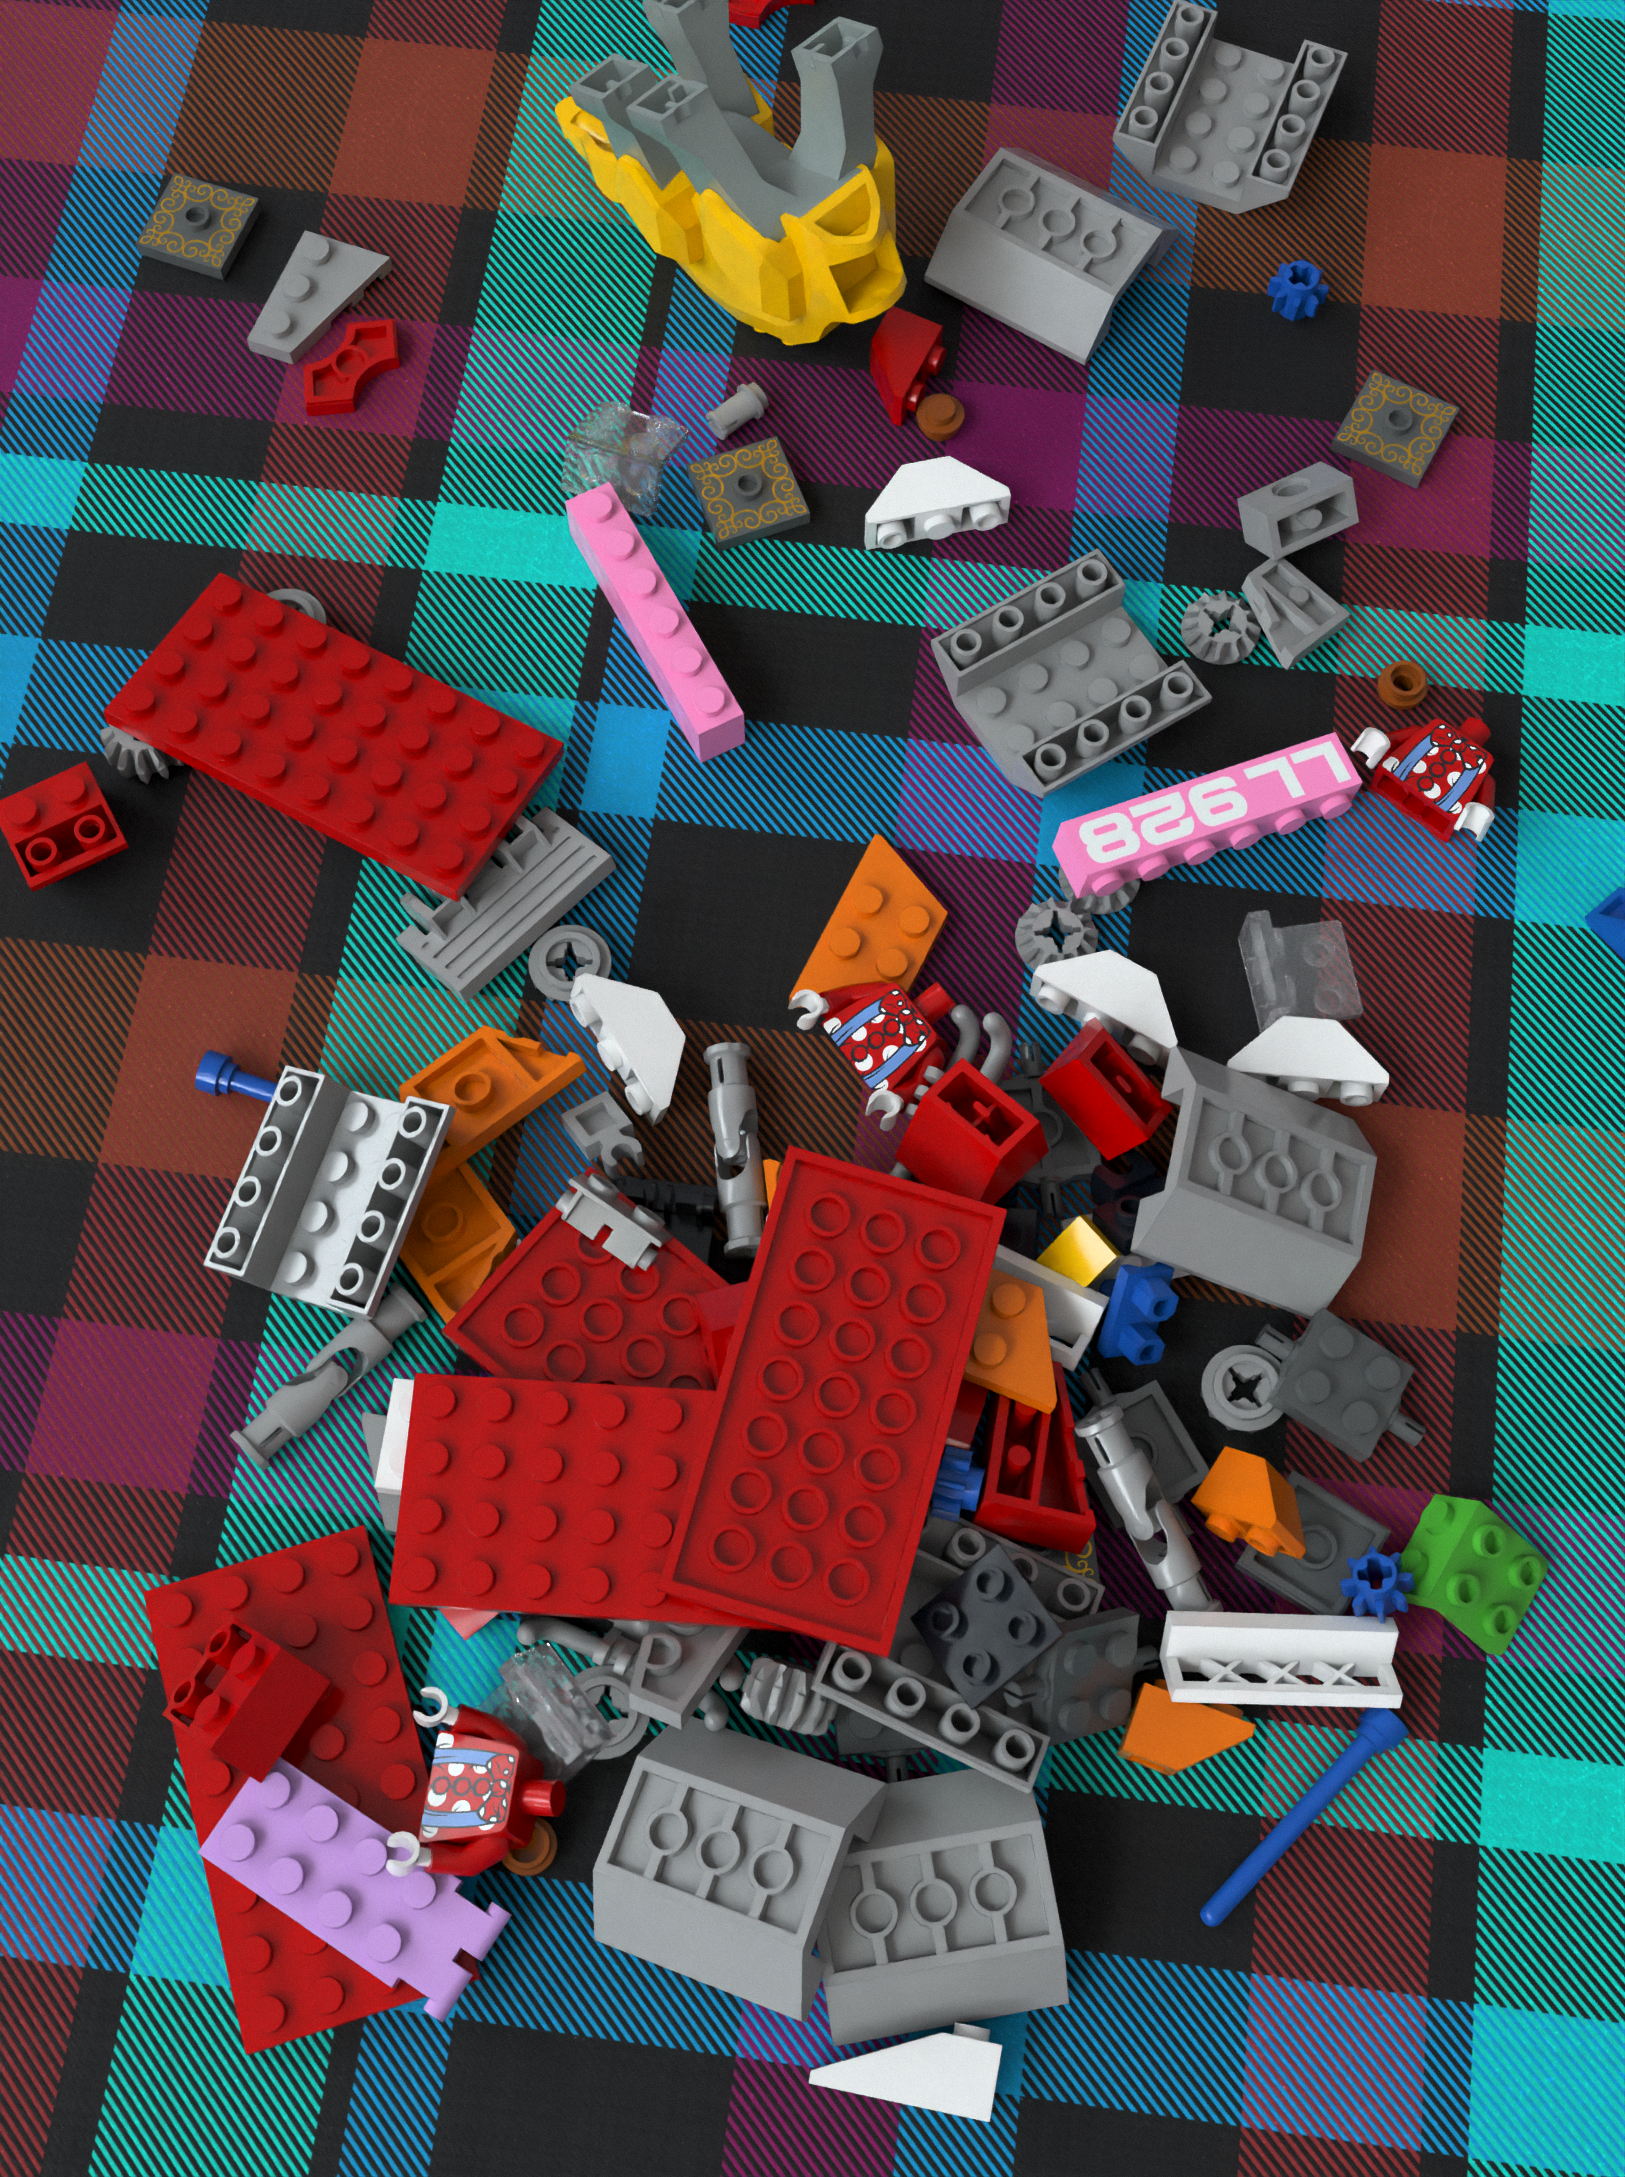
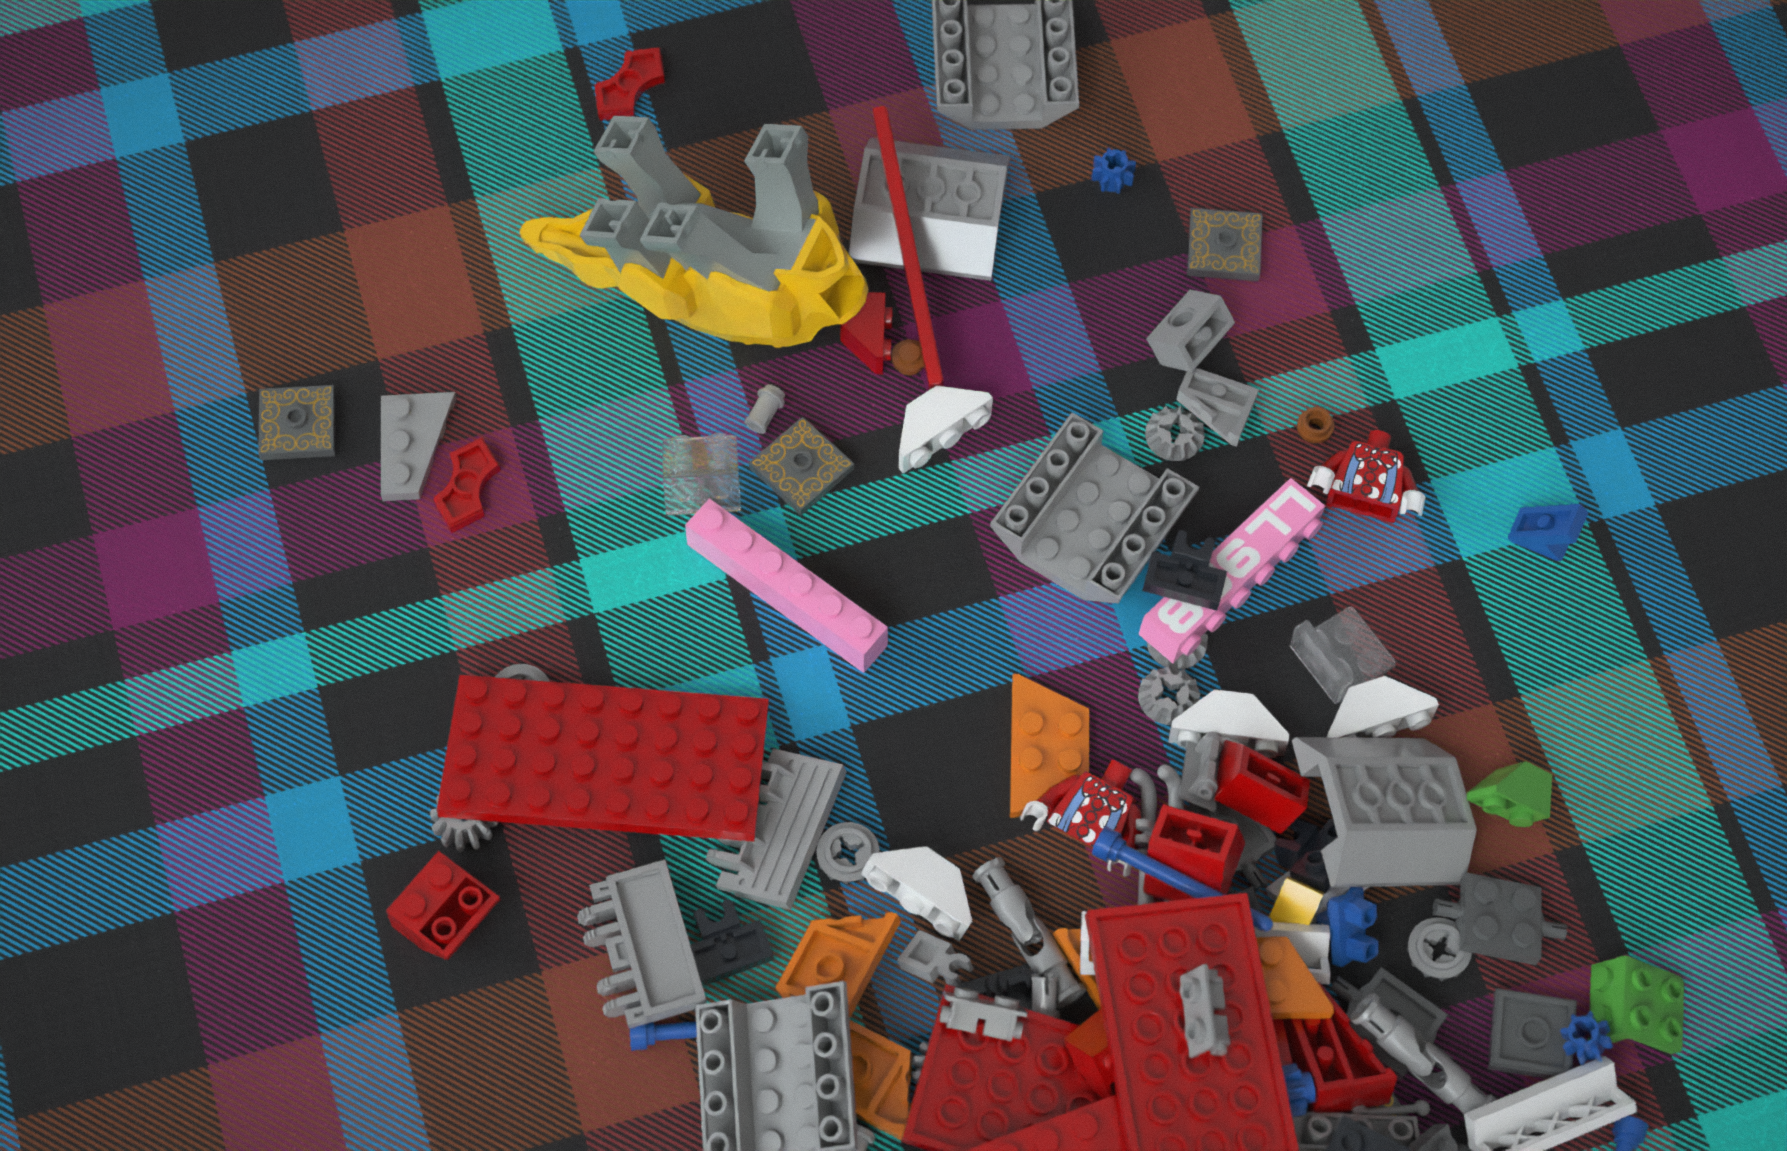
camera: 25 degrees left, 5 degrees down
(274, 969) = (647, 940): none -> light grey hinge
(369, 1013) = (728, 946): none -> black plate
(710, 1239) = (1044, 994): none -> light grey pin
(875, 1083) = (1112, 847): none -> blue piece
(879, 1310) = (1201, 995): none -> light grey hinge
(991, 276) = (907, 247): none -> red tile
(1043, 1042) = (1201, 771): none -> light grey hinge
(1121, 1577) = (1420, 1108): none -> light grey hinge
(1137, 792) = (1186, 574): none -> black plate
(1252, 1502) = (1482, 1020): orange slope -> none
(1436, 1235) = (1515, 793): none -> bright green slope

